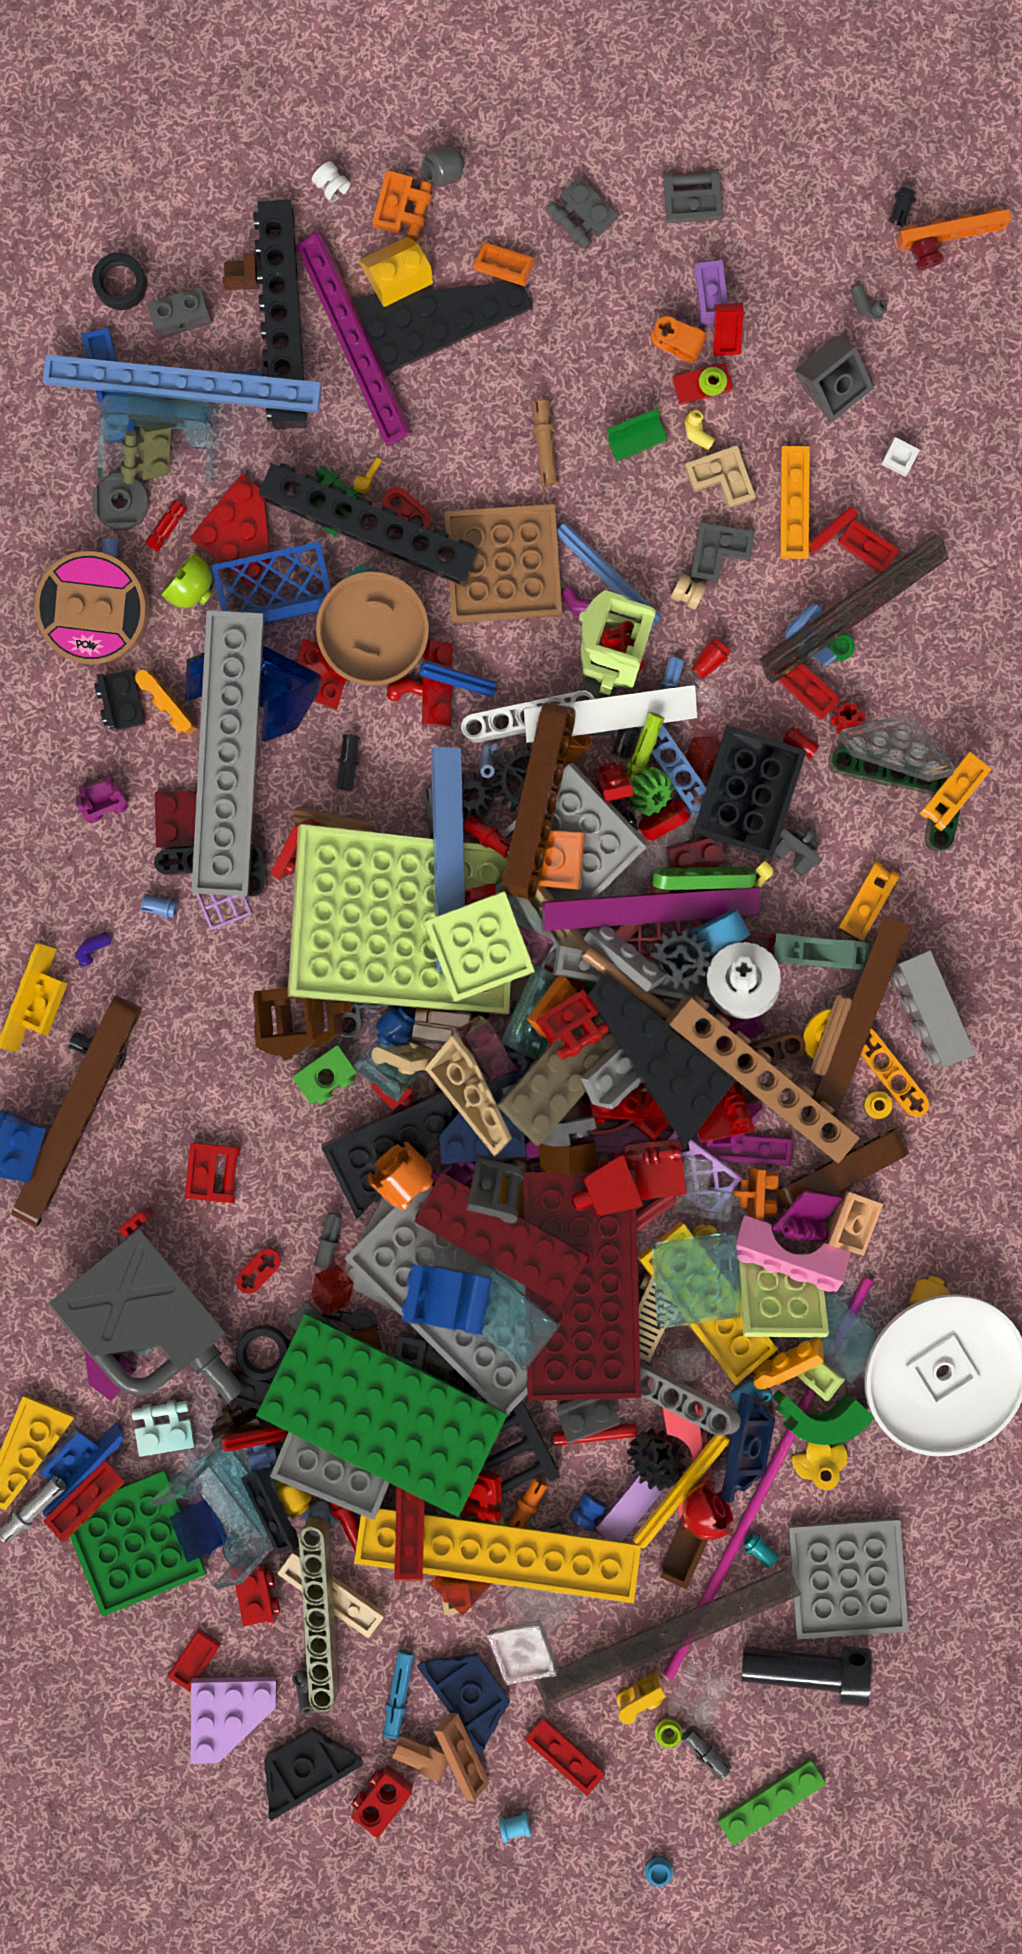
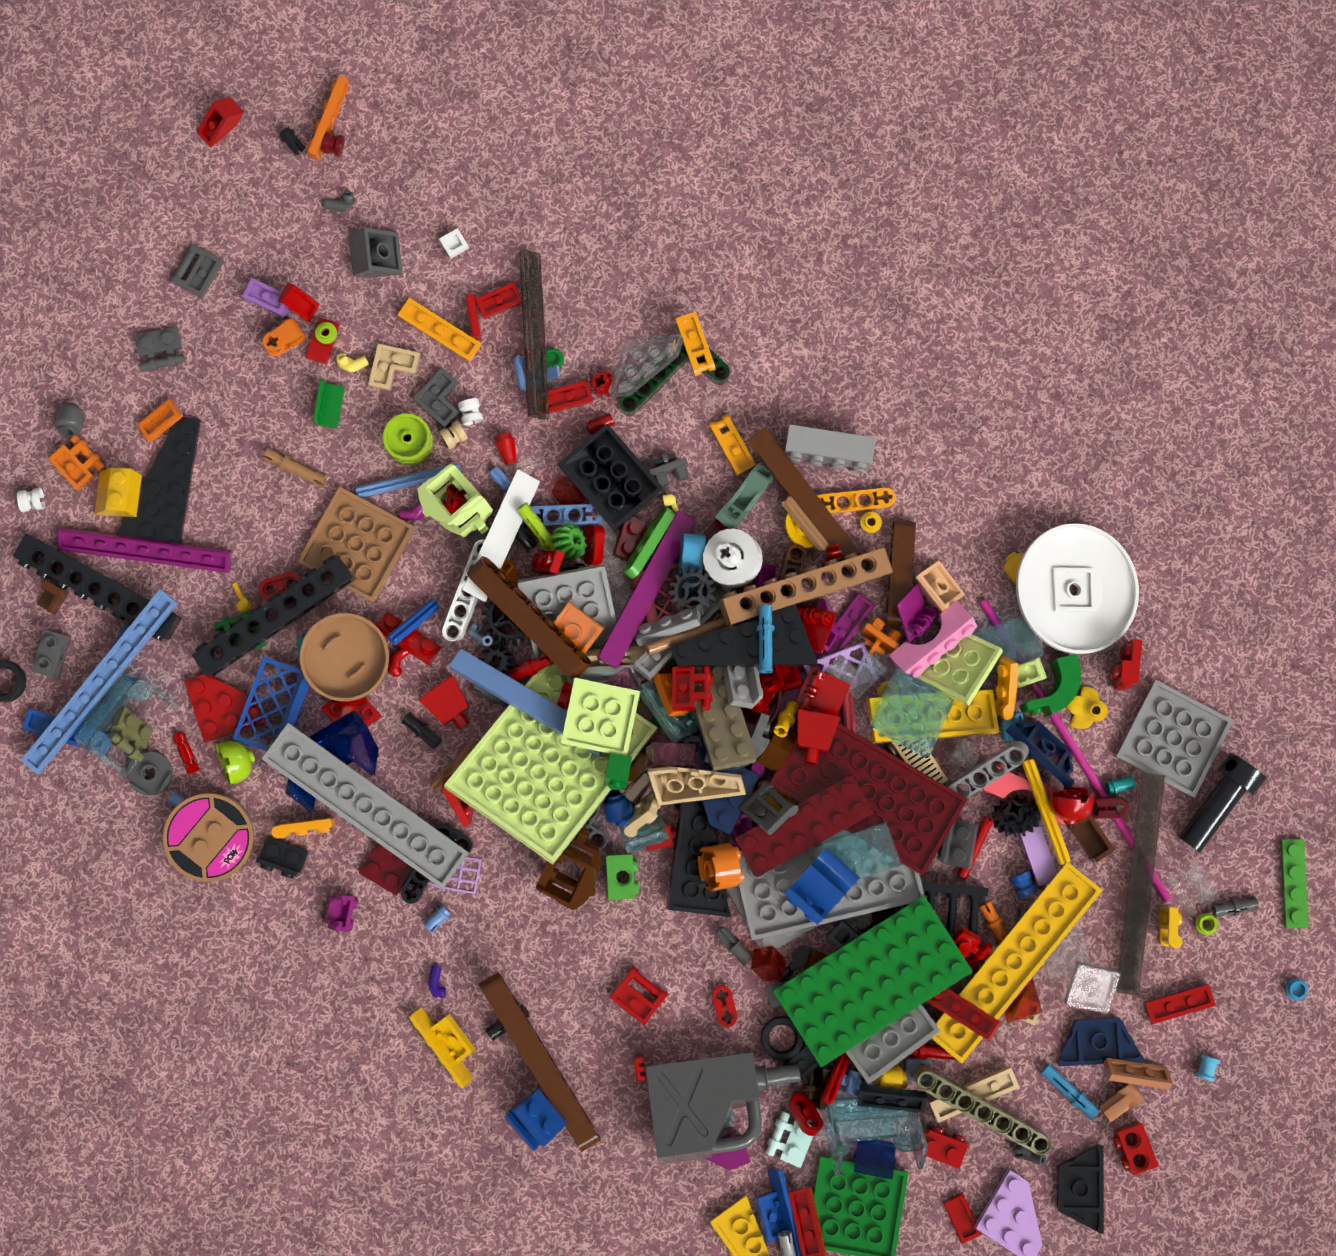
camera: 50 degrees left, 5 degrees down
(197, 1428) = (806, 1115): none -> red plate
(394, 771) = (447, 703): none -> red torso
(432, 1002) = (617, 771): none -> green brick
(605, 1148) = (786, 719): none -> yellow pin
(659, 530) = (417, 448): none -> lime wheel
(686, 1066) = (765, 631): none -> dark azure pin
(724, 1559) = (1110, 812): none -> dark red beam
(725, 593) = (470, 411): none -> white wheel
(818, 1084) = (833, 552): none -> red hand
(875, 112) = (219, 120): none -> red slope
(889, 1486) = (1126, 672): none -> red plate

